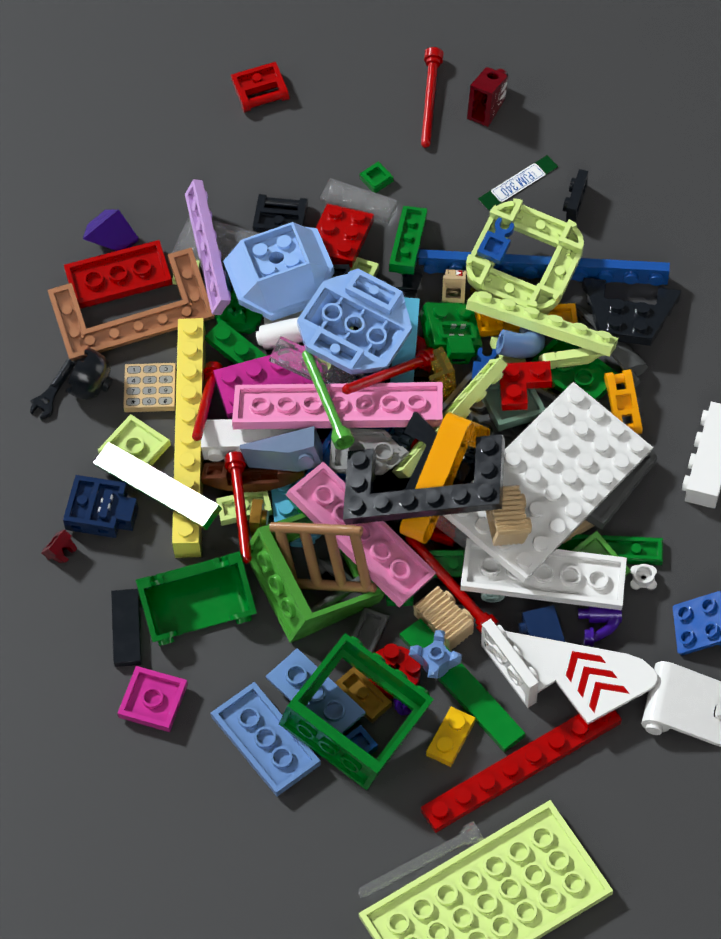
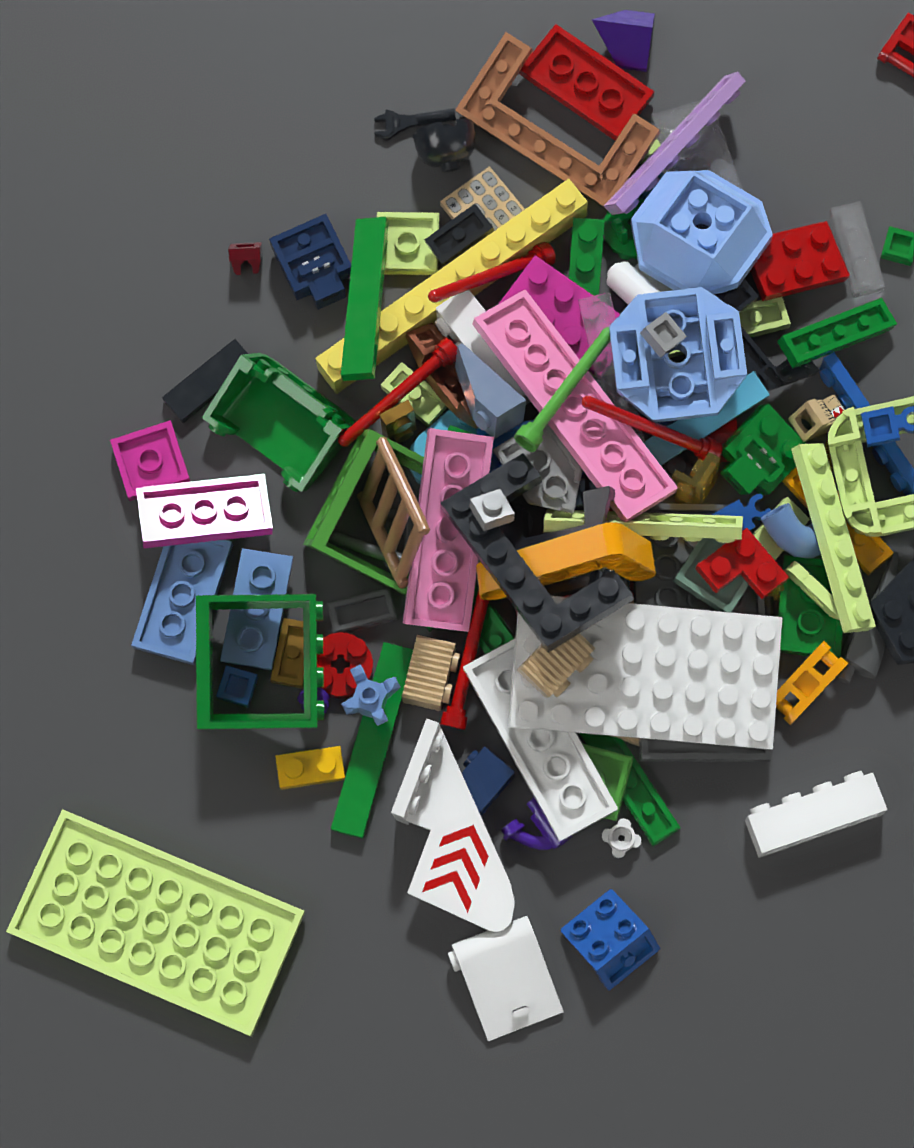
camera: 55 degrees right, 15 degrees up
(158, 408) = (459, 235): none -> black plate
(219, 683) = (204, 511): none -> plate
(270, 218) = (767, 186): black plate -> none
(338, 319) = (663, 334): none -> light grey plate
(376, 486) = (491, 510): none -> plate
(468, 836) = (215, 857): clear piece -> none
(515, 769) = (316, 852): red plate -> none

